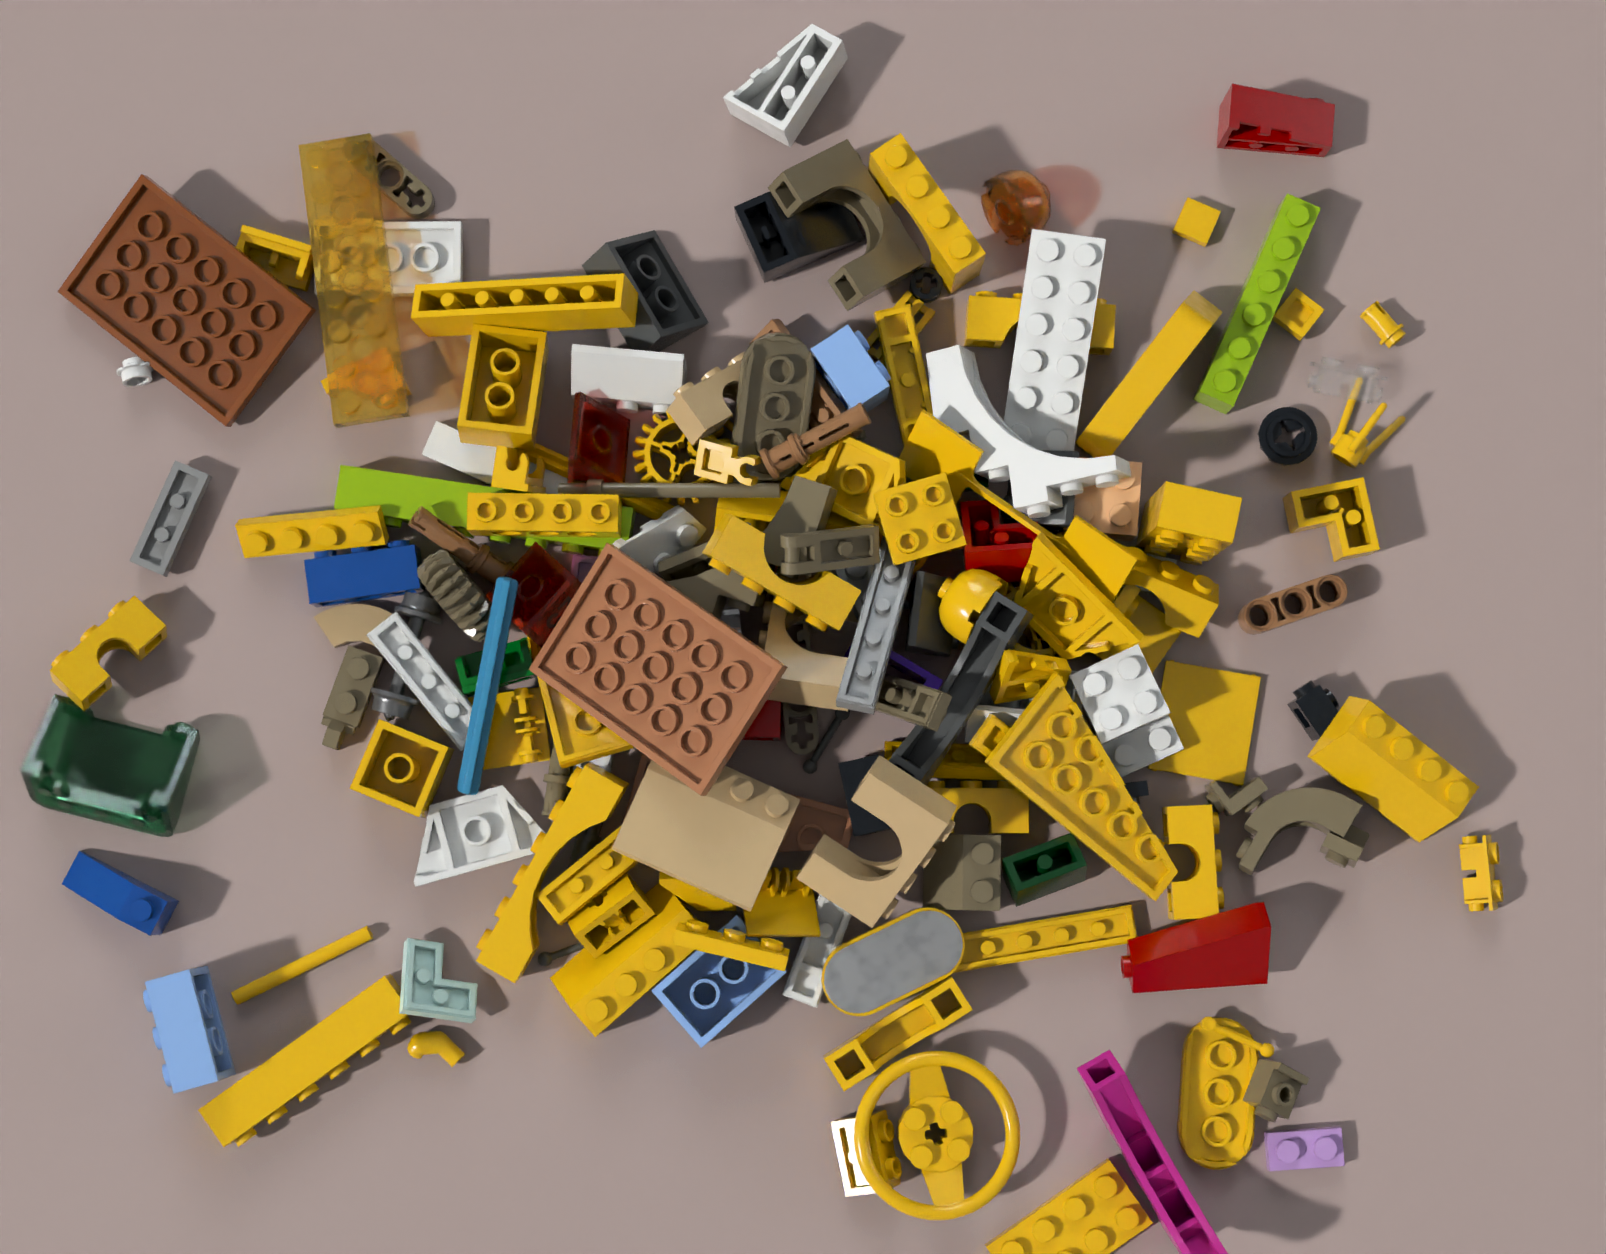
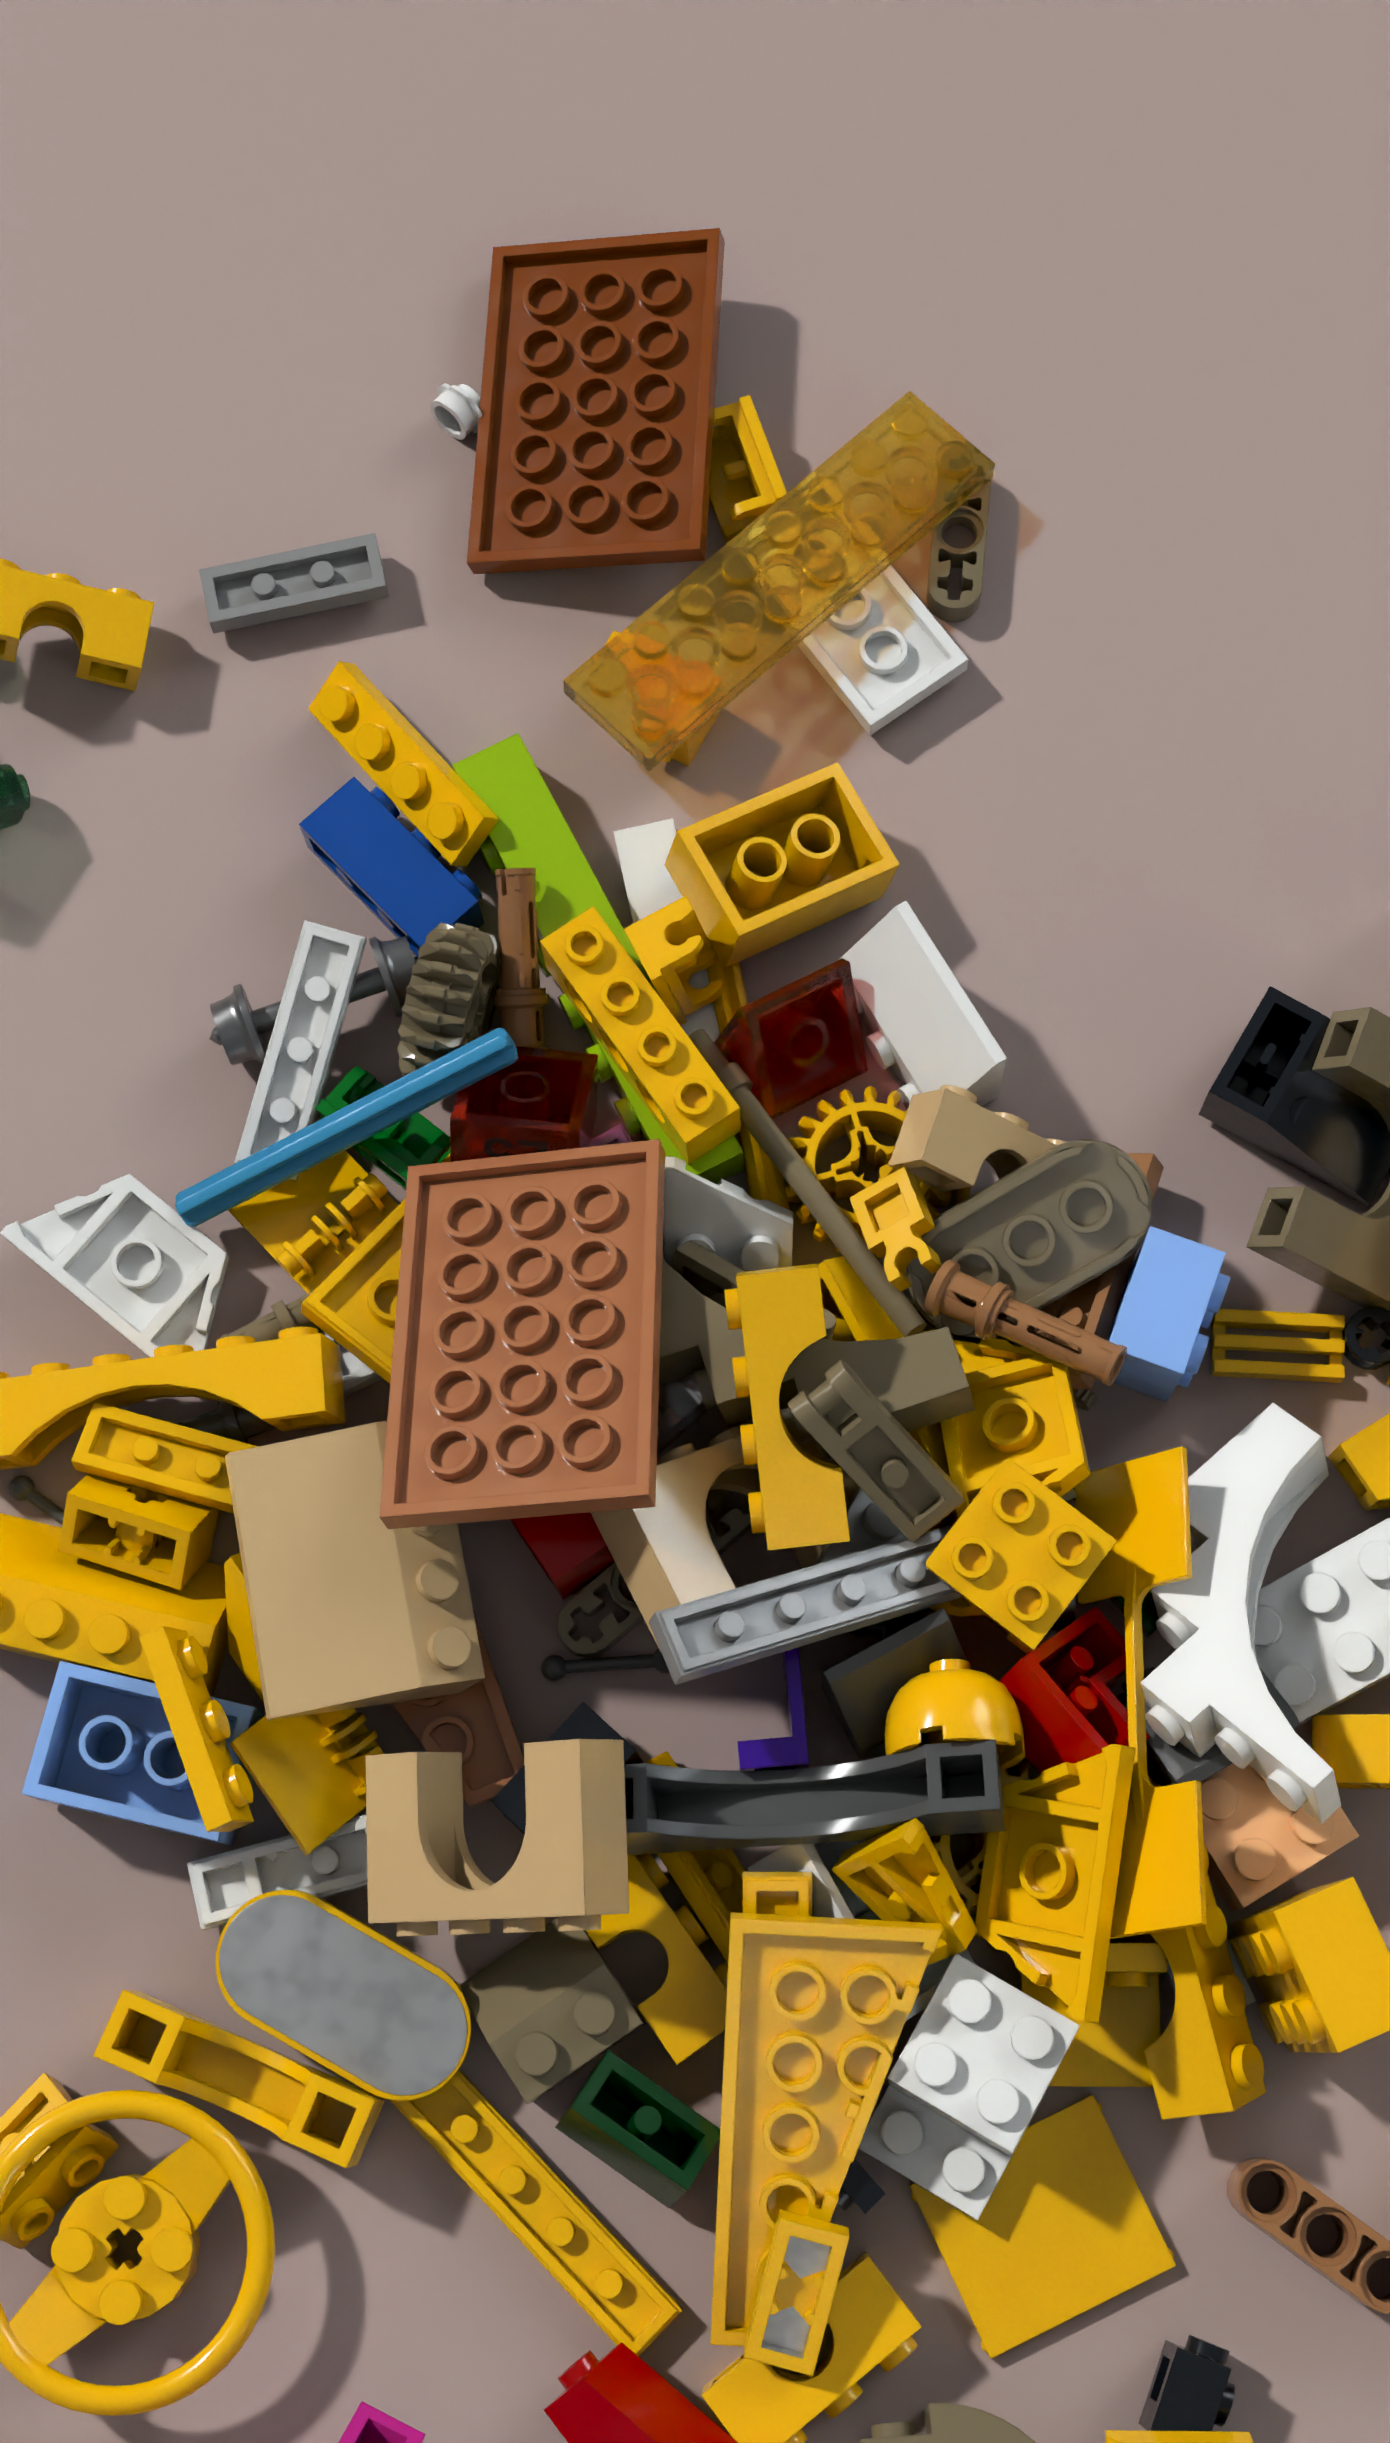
camera: 60 degrees right, 10 degrees down
(350, 623) = (314, 894): tan tile -> none
(350, 695) = (207, 970): dark tan hinge -> none
(402, 768) = (154, 1101): yellow brick -> none
(526, 304) = (919, 812): yellow brick -> none
(664, 301) = (1059, 960): dark grey slope -> none
(904, 365) = (1235, 1381): yellow plate -> none
(912, 702) = (739, 1732): dark tan plate -> none
(1161, 847) = (796, 2292): none -> yellow piece
(1244, 798) = (973, 2376): dark tan bracket -> none

